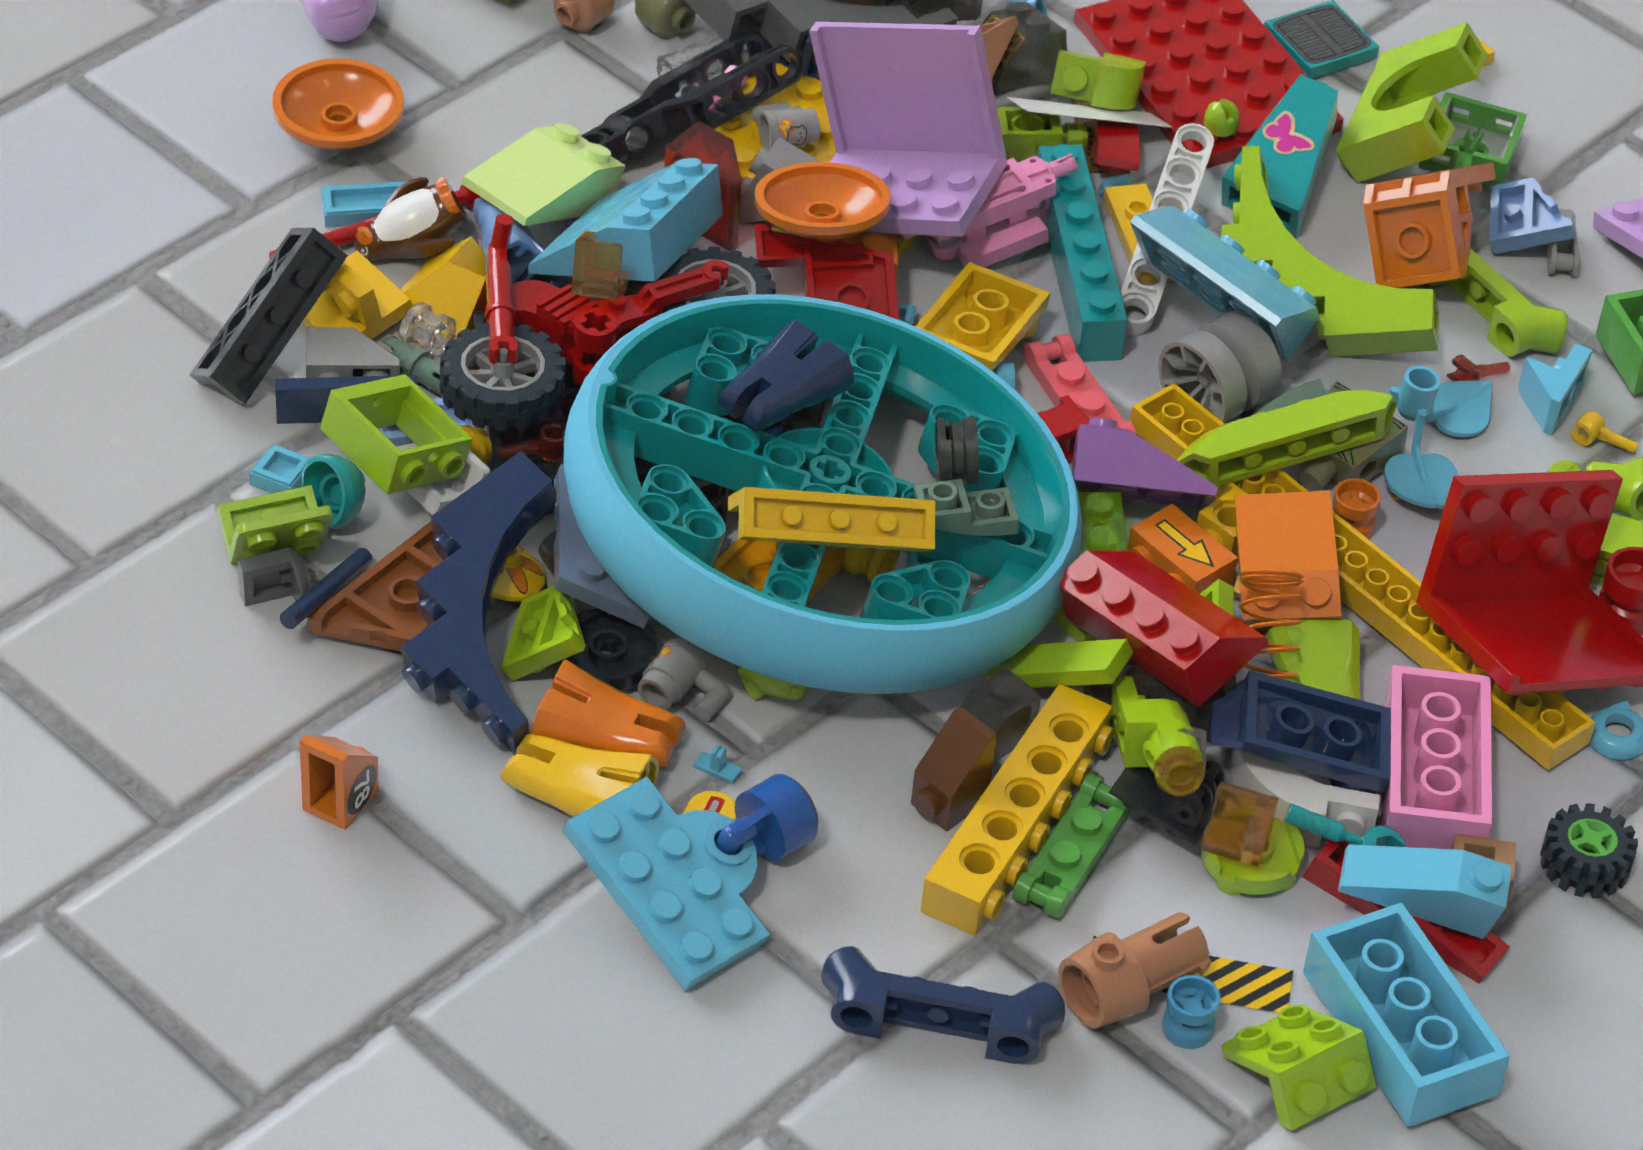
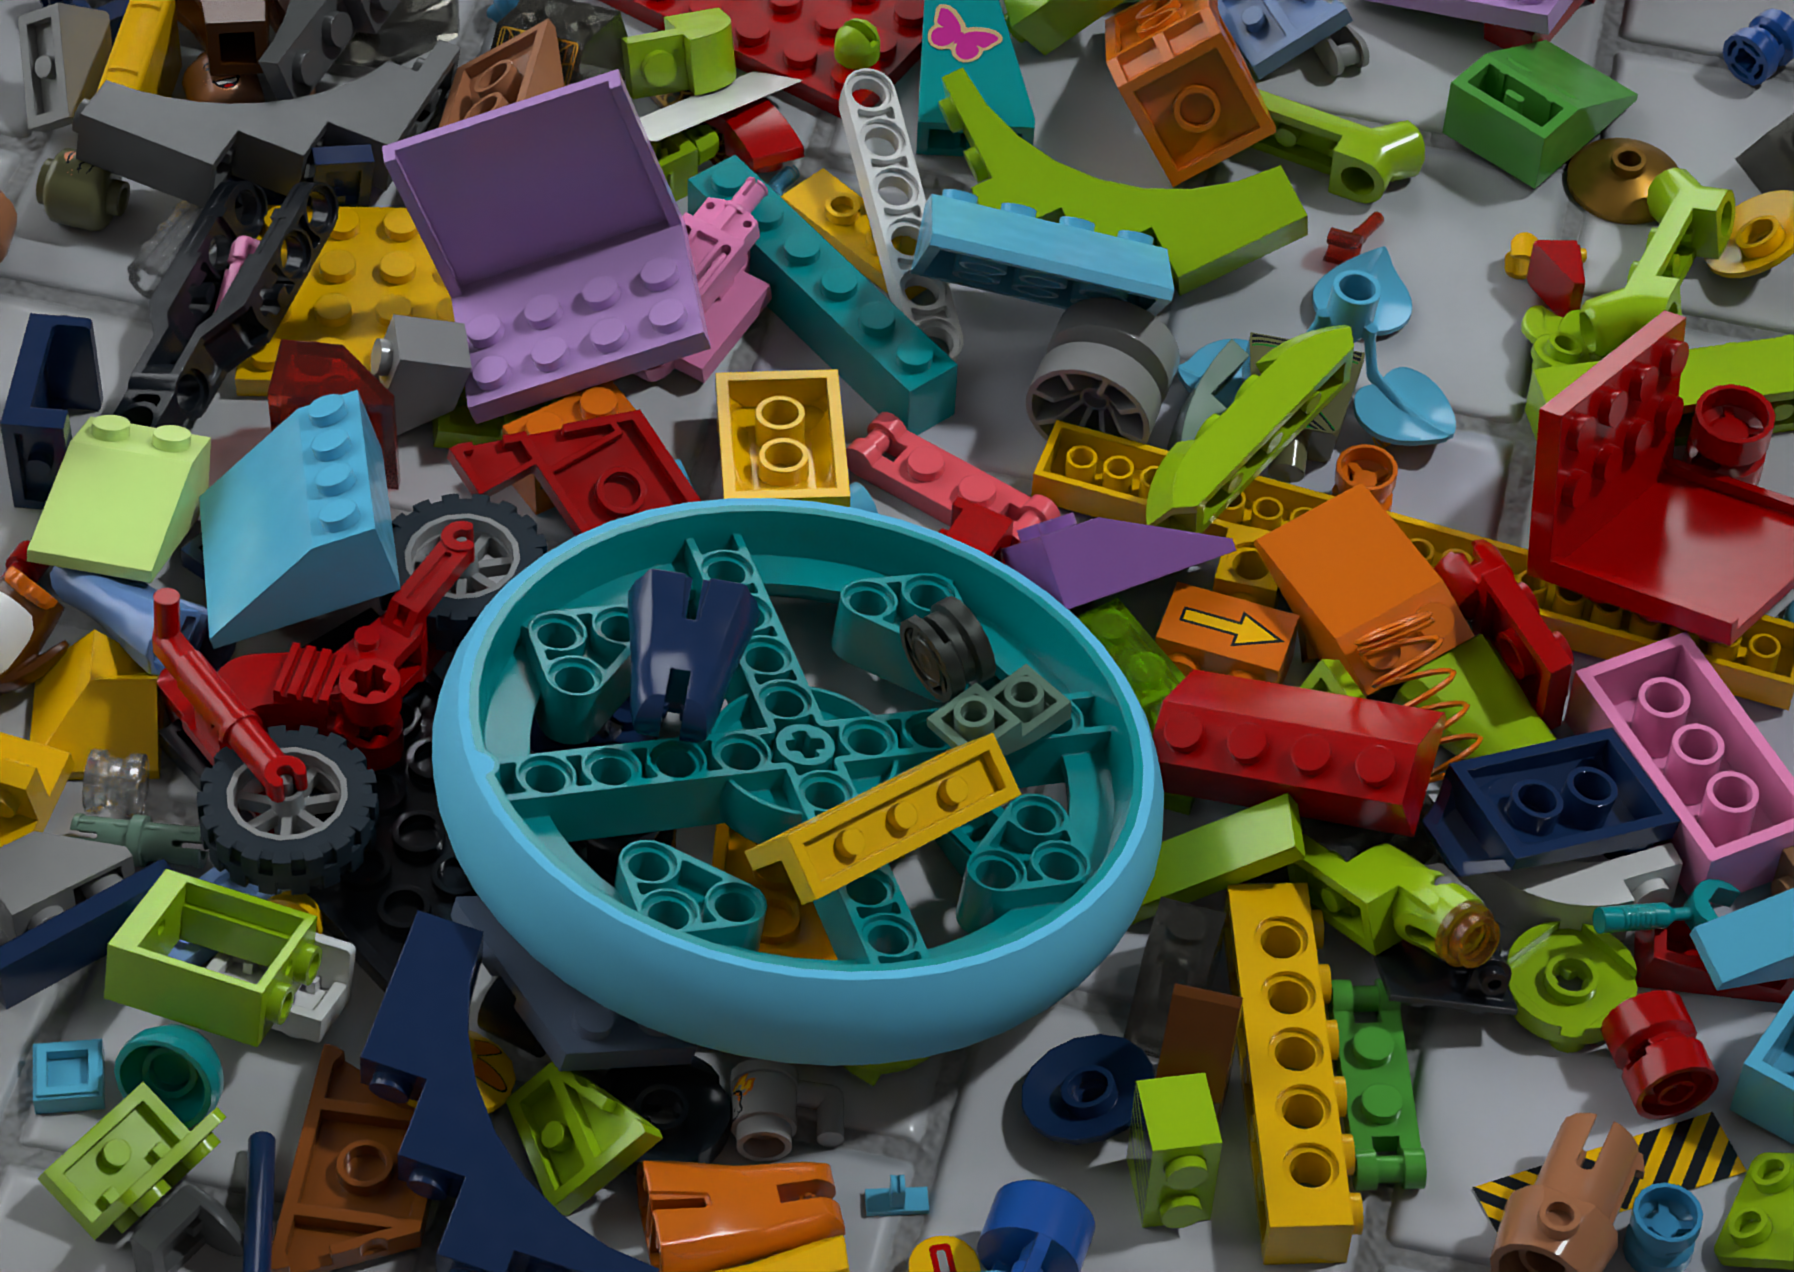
camera: 30 degrees left, 5 degrees up
(548, 446) = (390, 877): clear red hand -> none
(549, 93) = (52, 374): none -> dark blue panel
(598, 268) = (331, 609): clear orange panel -> none
(791, 124) = (365, 295): light grey piece -> none
(822, 200) = (521, 378): orange dish -> none
(878, 756) = (1085, 1088): none -> dark blue dish
(898, 808) = (1174, 1150): none -> lime brick
(1240, 824) = (1557, 963): clear orange panel -> none
(1273, 913) = (1659, 1054): none -> red wheel
(1371, 596) = (1511, 620): none -> red plate
(1552, 389) = (1456, 223): medium azure slope -> none
(1601, 441) = (1557, 274): none -> red slope

